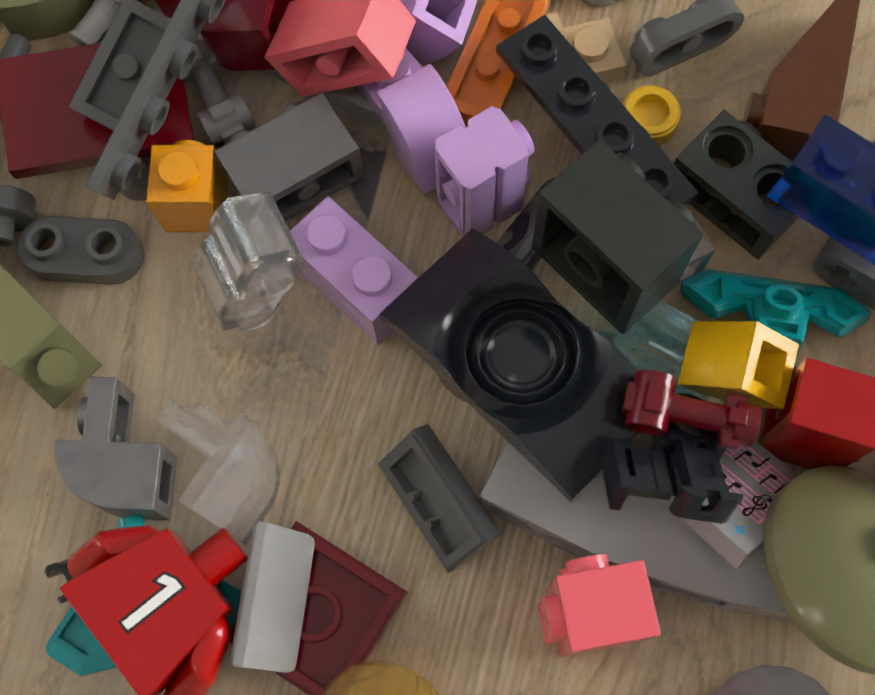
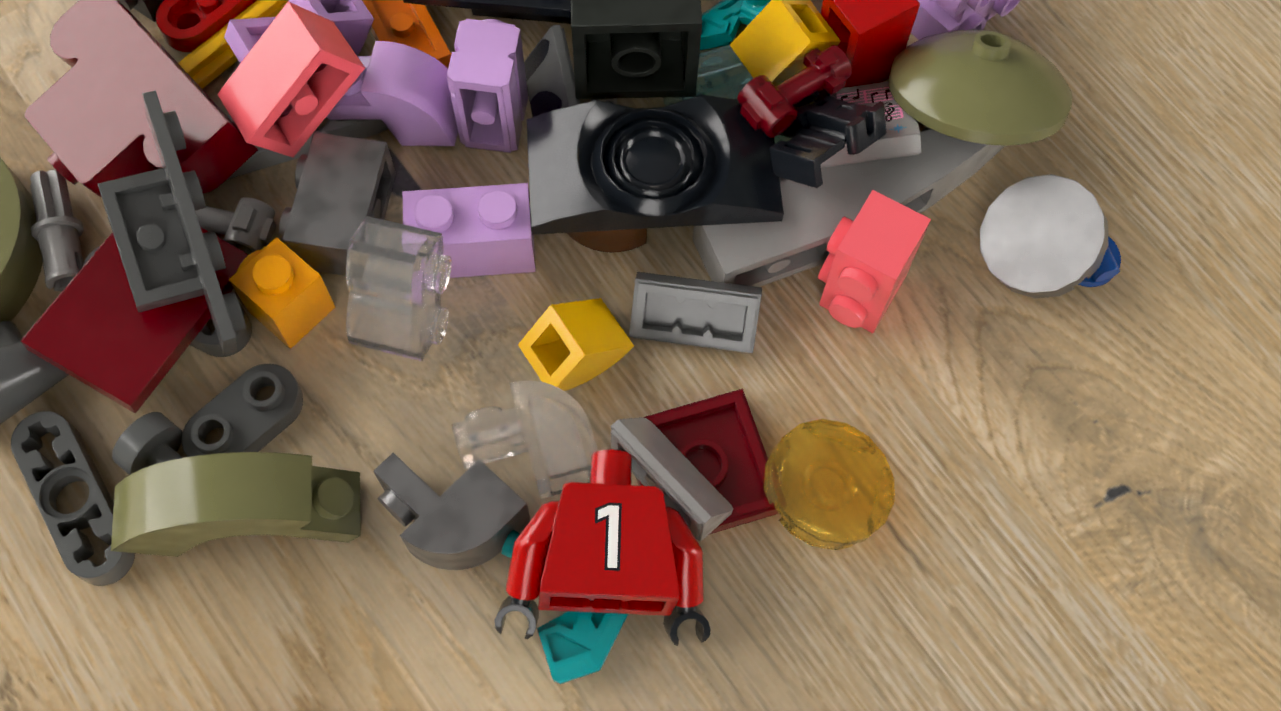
camera: 55 degrees left, 5 degrees down
(333, 429) = (574, 343): none -> yellow brick

